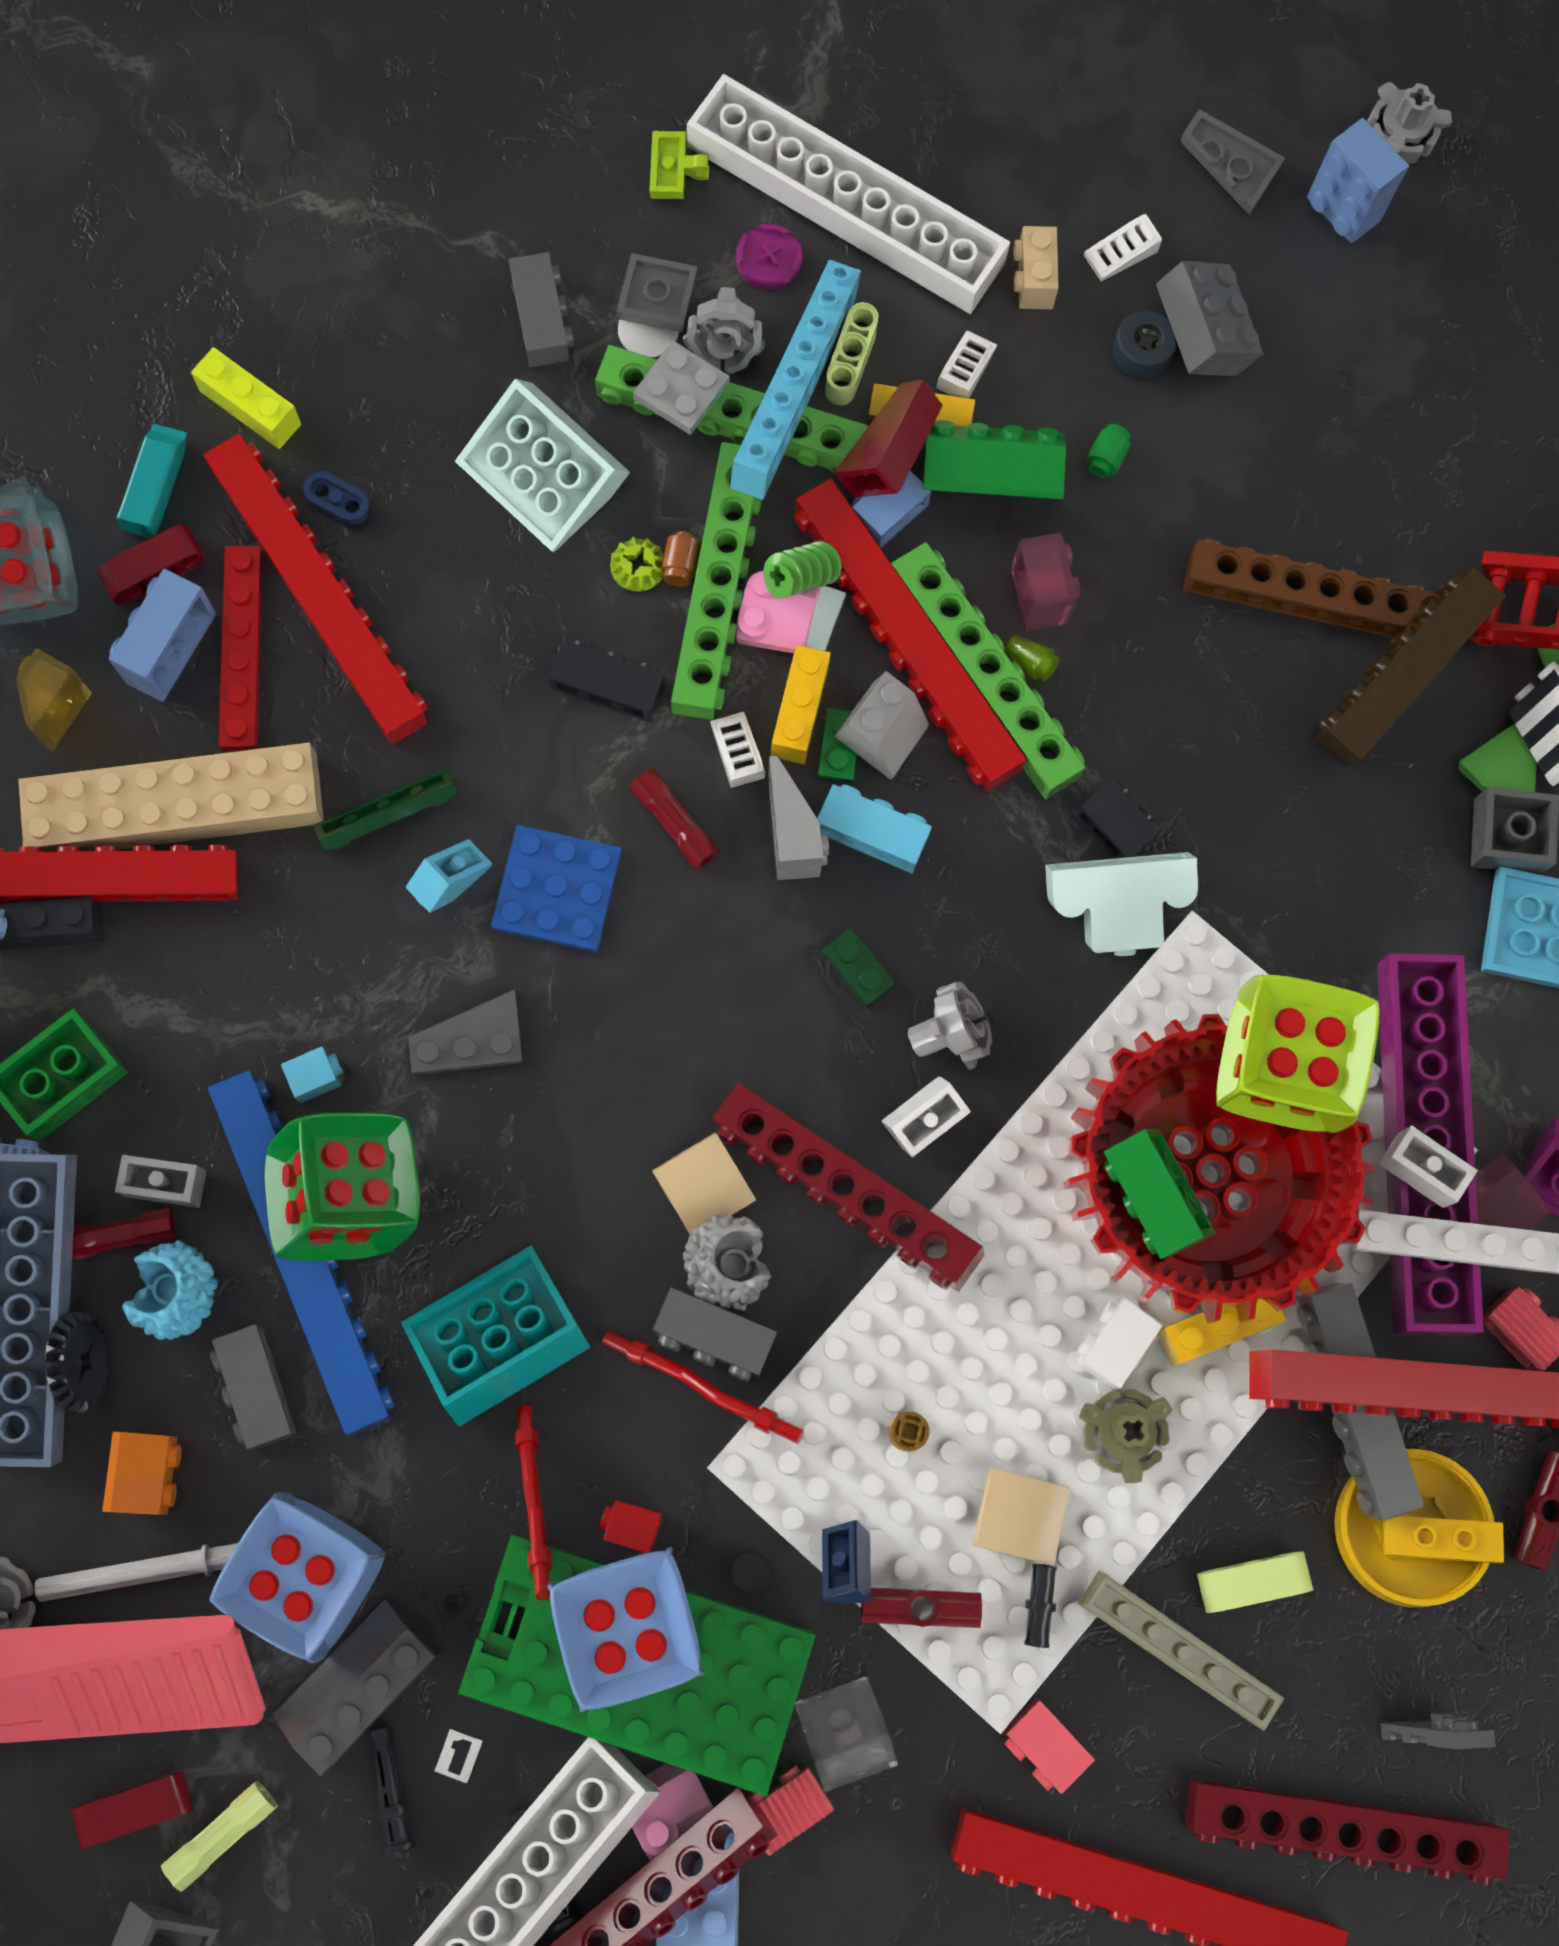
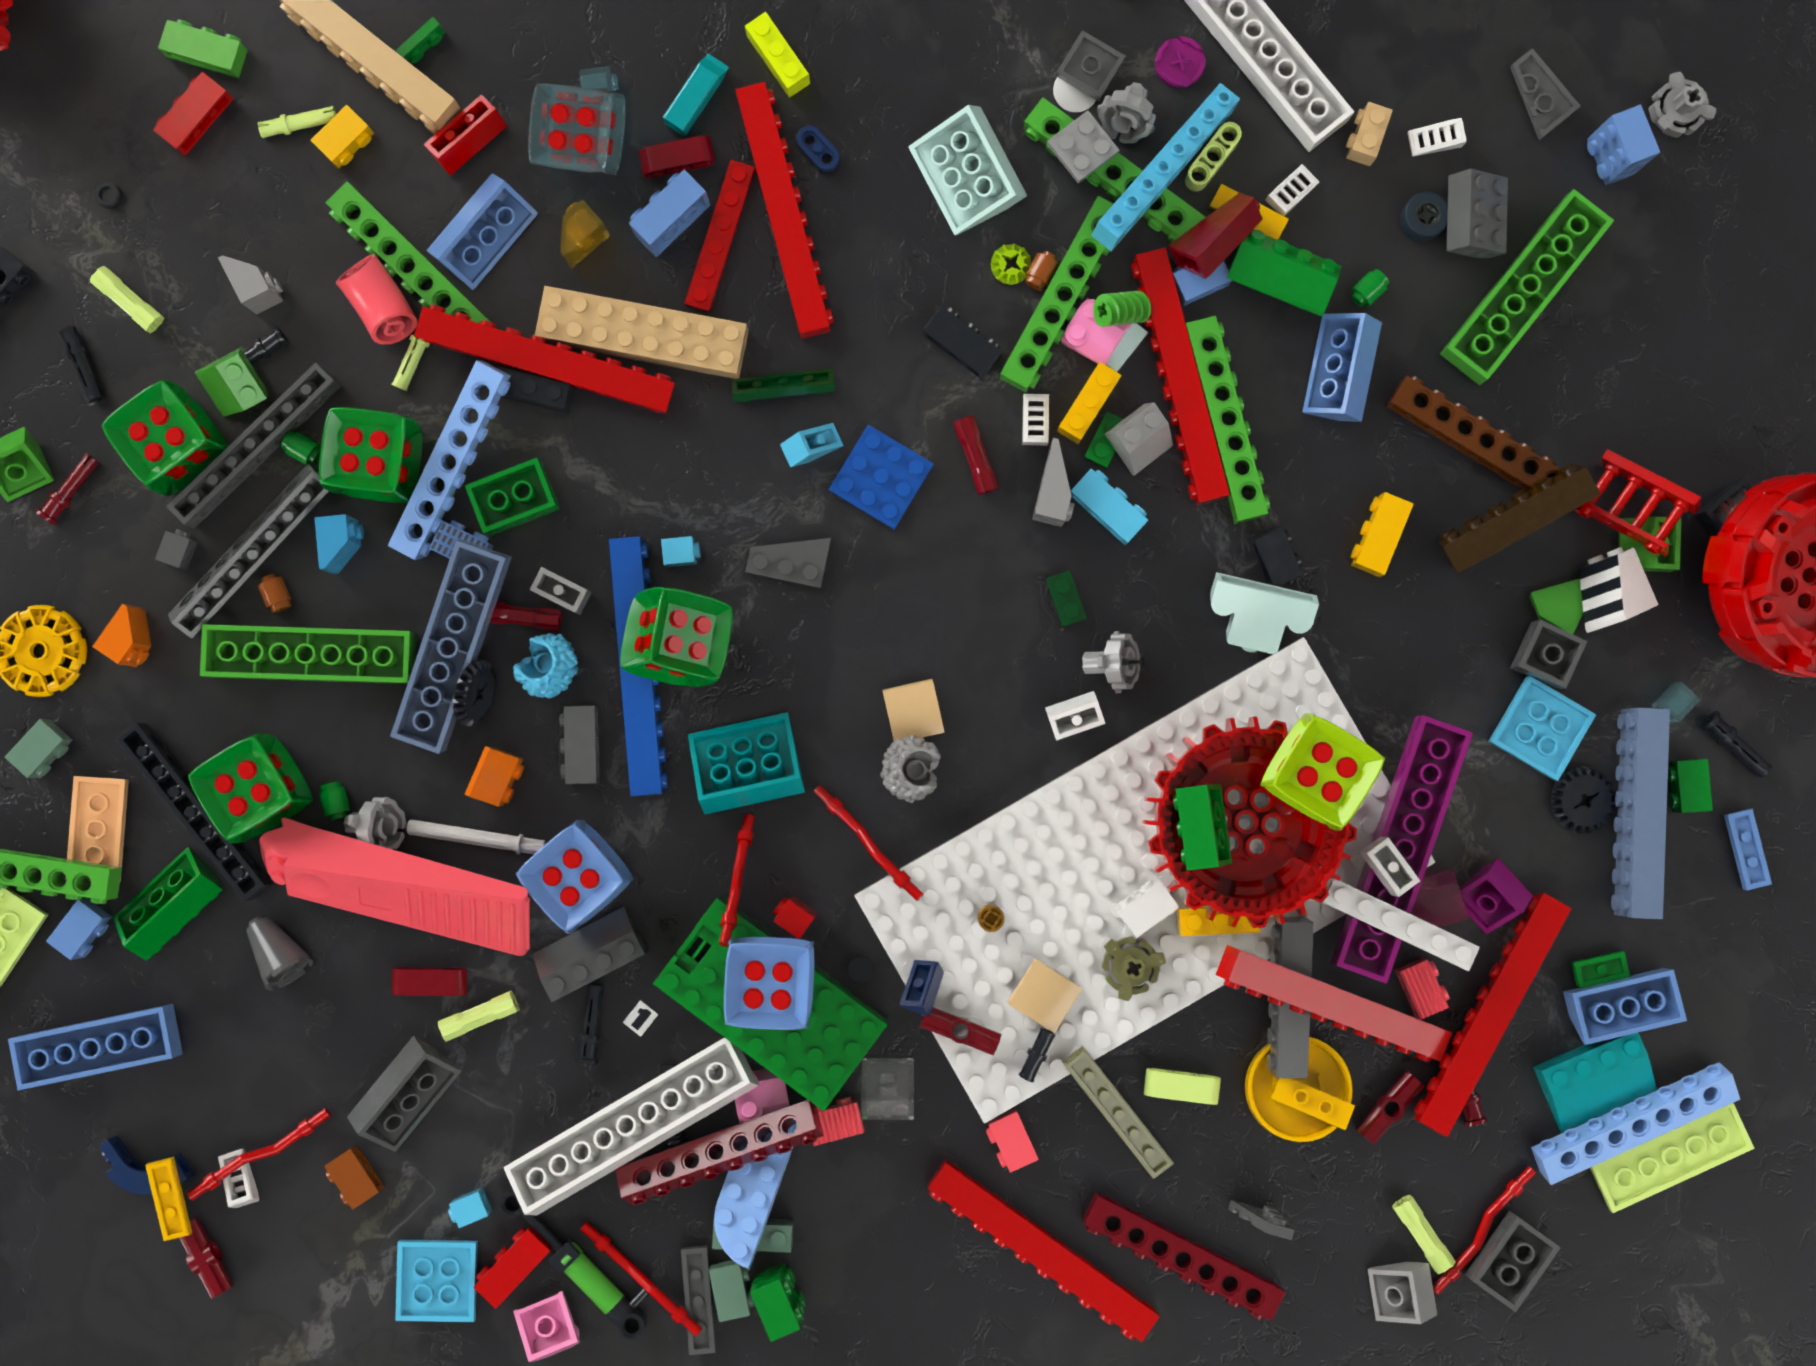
camera: 25 degrees right, 10 degrees up
(541, 309) = (1004, 52): dark grey brick -> none
(713, 1335) = (886, 813): dark grey brick -> none
(746, 1108) = (956, 670): dark red brick -> none
(1033, 657) = (1262, 422): clear neon green cone -> none
(1045, 581) = (1288, 371): clear pink brick -> none
(1111, 556) = (1342, 366): none -> medium blue slope
(1240, 749) = (1381, 534): none -> yellow brick
(1304, 389) = (1526, 287): none -> bright green brick

